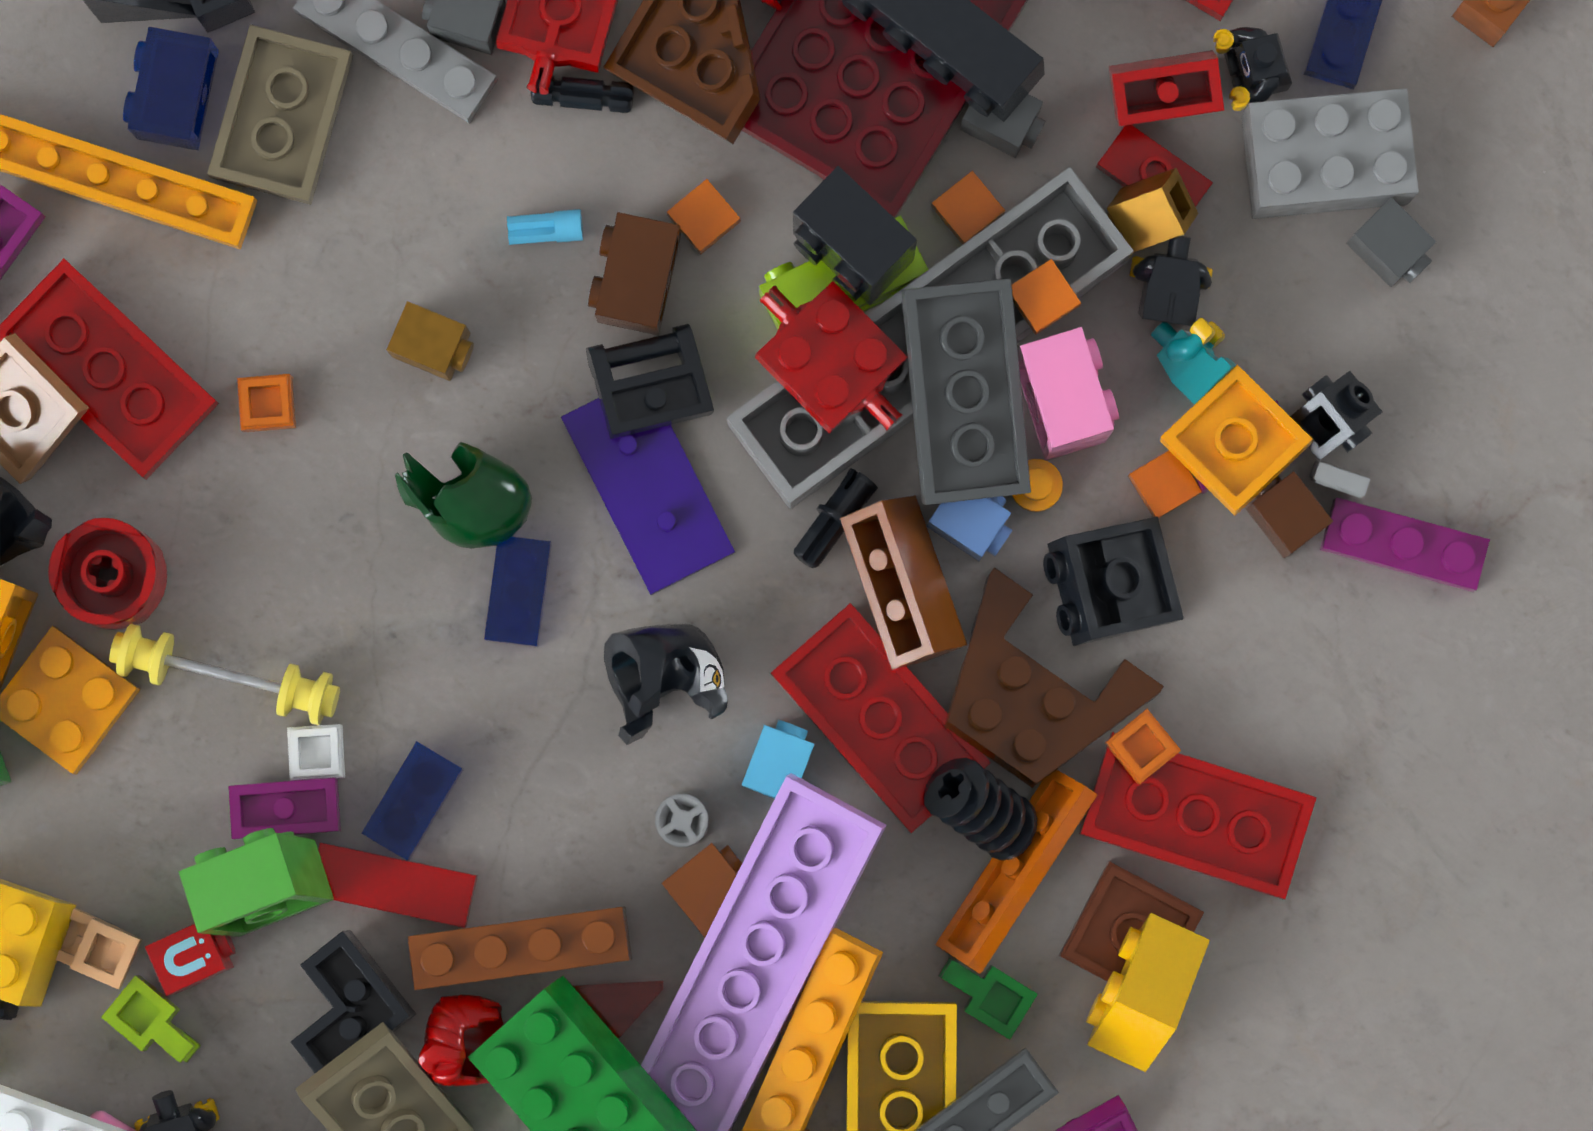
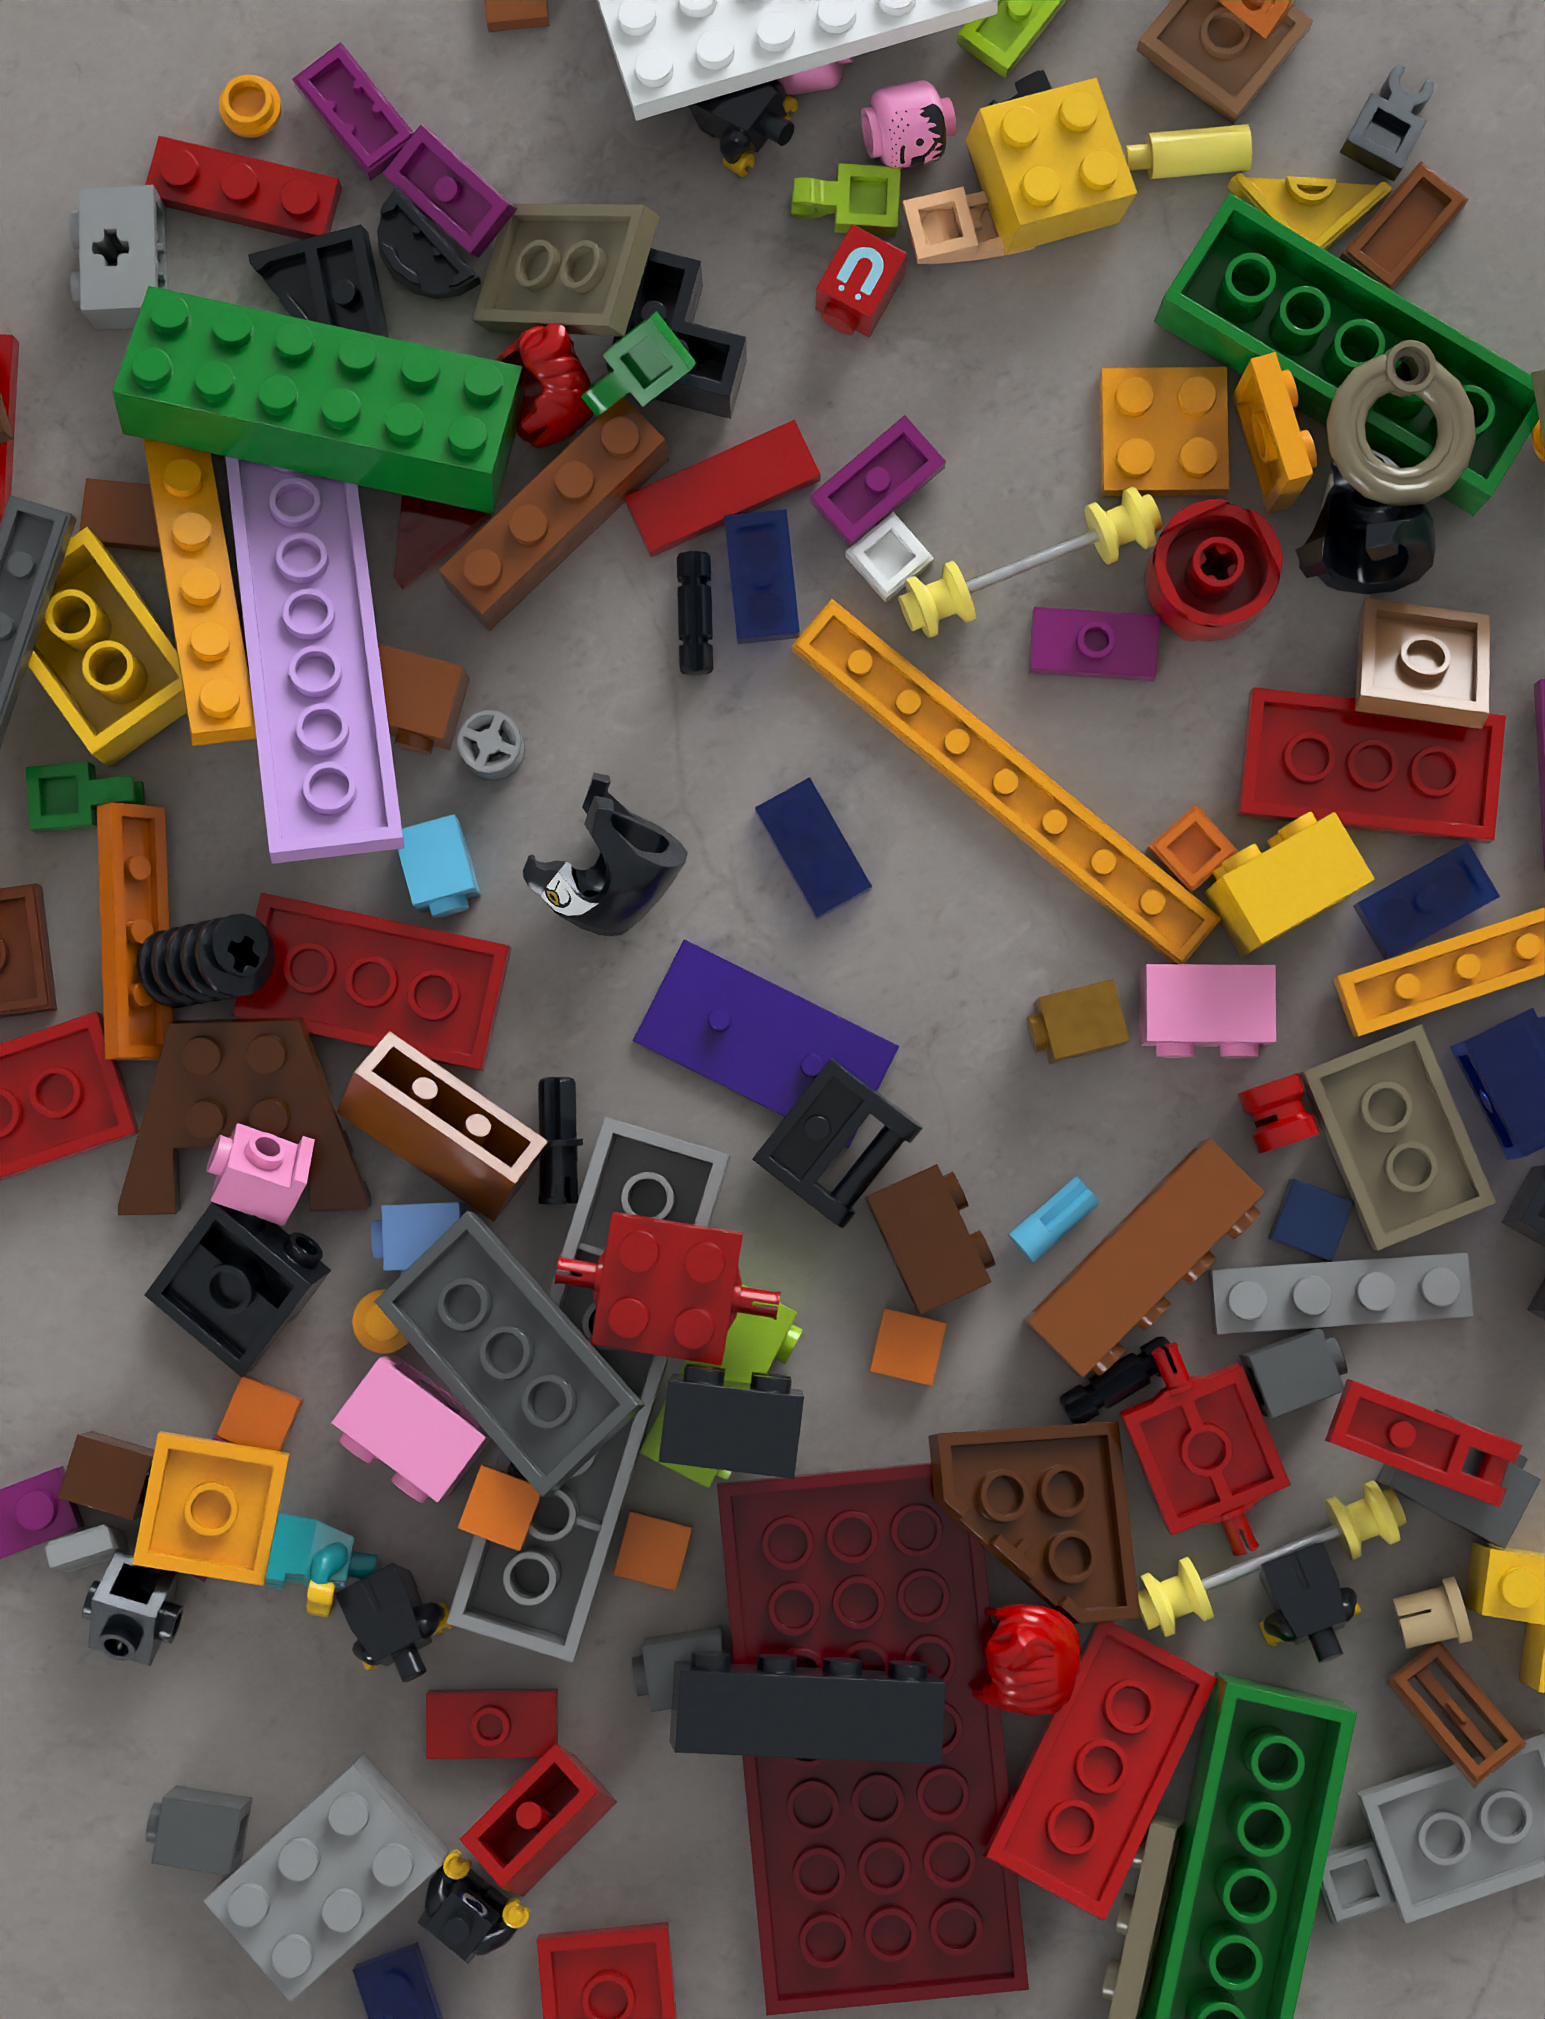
camera: 145 degrees right, 0 degrees up
(73, 1043) = (907, 124): none -> bright pink head
(139, 253) = (1426, 901): none -> clear blue plate
(224, 326) = (1296, 879): none -> yellow brick
(224, 589) = (1094, 644): none -> magenta plate
(255, 883) = (847, 382): bright green brick -> none
(338, 288) = (1207, 1008): none -> bright pink brick
(345, 186) = (1278, 1113): none -> red wheel
(356, 541) = (1005, 784): none -> light orange tile
(378, 104) = (1310, 1220): none -> dark blue tile
(385, 994) = (641, 362): none -> green plate
(474, 508) = (905, 899): dark green helmet -> none
(476, 811) = (694, 613): none -> black axle
(505, 157) = (1144, 1258): none -> dark orange brick
(1046, 637) = (259, 1172): none -> bright pink brick
(1142, 746) = (93, 1138): orange tile -> none
(1153, 210) = (461, 1682): pearl gold brick -> none

